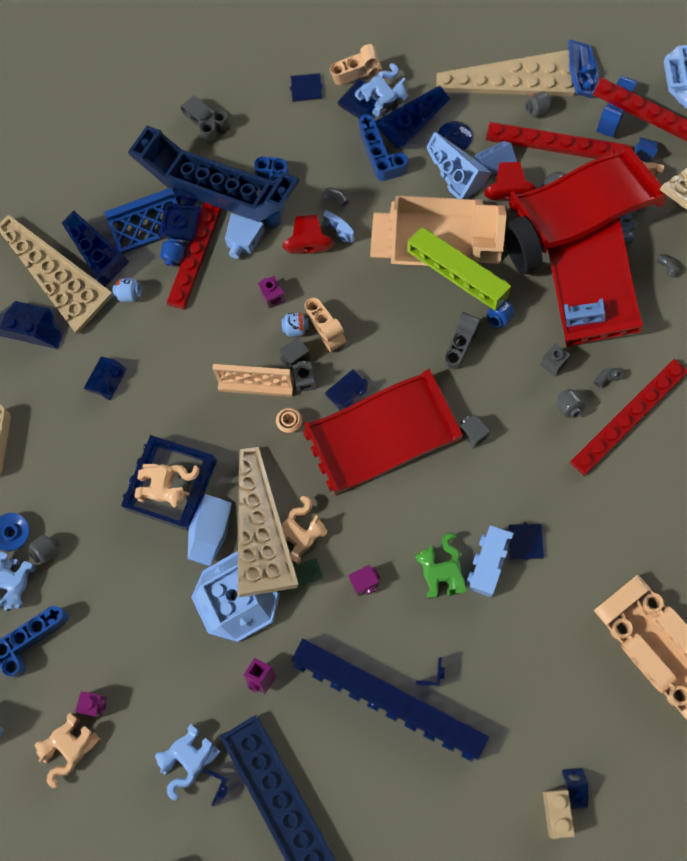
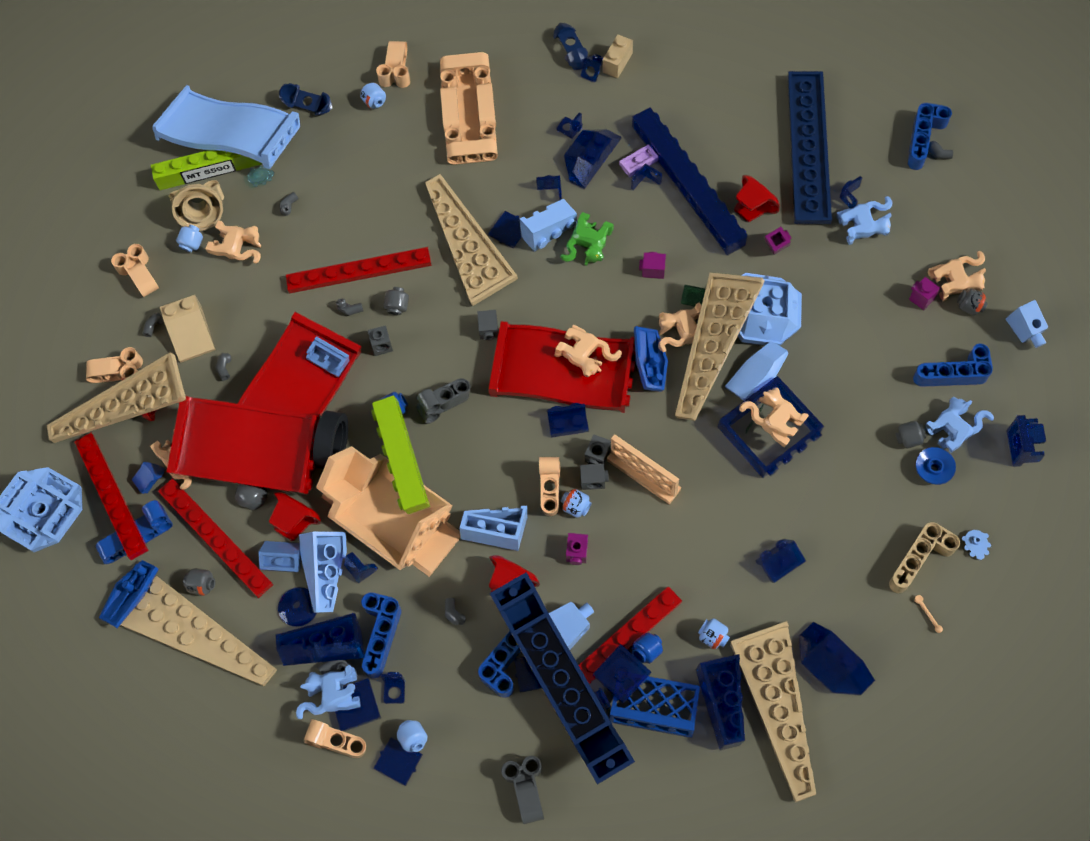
camera: 150 degrees left, 5 degrees down
(41, 724) = (972, 301): none -> dark grey head
(289, 420) = (635, 418): light nougat cone -> none
(305, 100) = (412, 736): none -> light blue head
(308, 713) = (755, 200): none -> red piece
(310, 481) = (649, 359): none -> blue piece
(343, 230) = (472, 570): light blue slope -> none
(344, 124) = (391, 680): none -> clear blue bracket
(345, 266) = (494, 527): none -> light blue wedge
(372, 455) = (583, 348): none -> light nougat animal
(429, 180) = (357, 568): none -> clear blue tile
(452, 692) = (638, 159): none -> lavender plate
(507, 672) = (589, 154): none -> clear blue wedge
(524, 611) = (549, 182): none -> clear blue bracket
(532, 490) = (475, 256): none -> tan wing
(540, 694) = (575, 125): none -> clear blue bracket
(603, 788) = (575, 53): none -> dark blue piece

